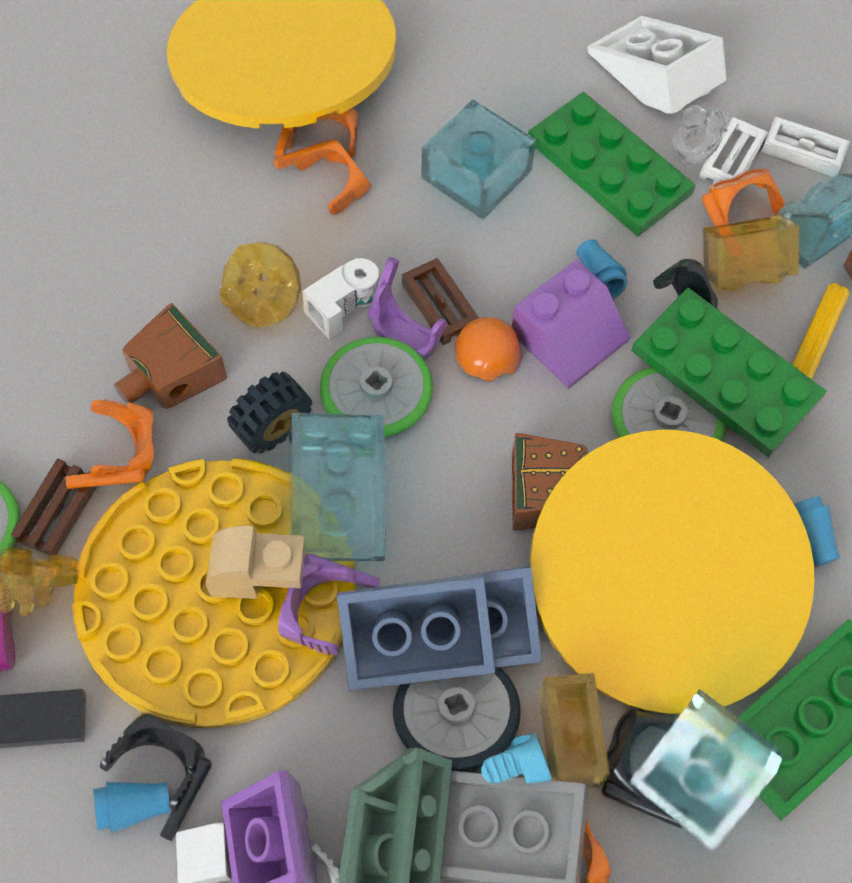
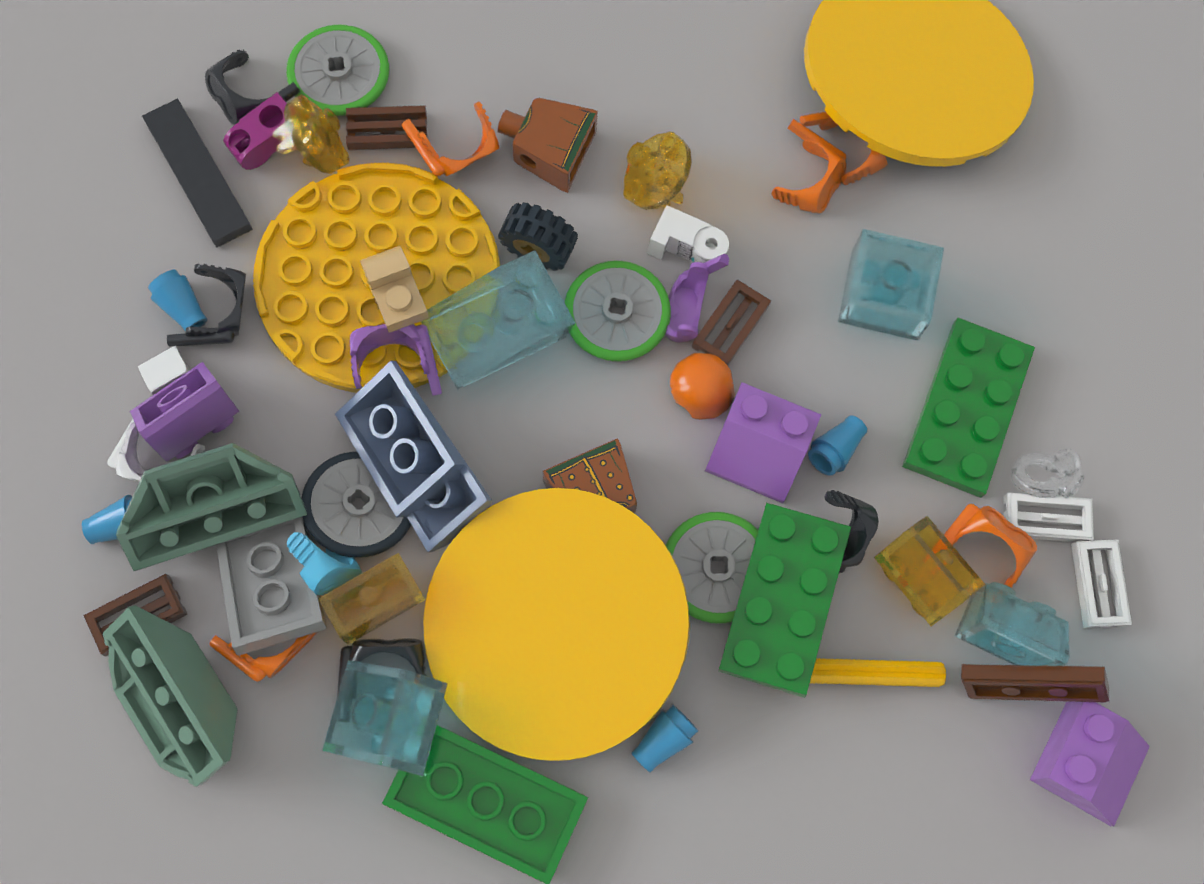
camera: 60 degrees right, 10 degrees up
(662, 62) = (1115, 403): white slope -> none

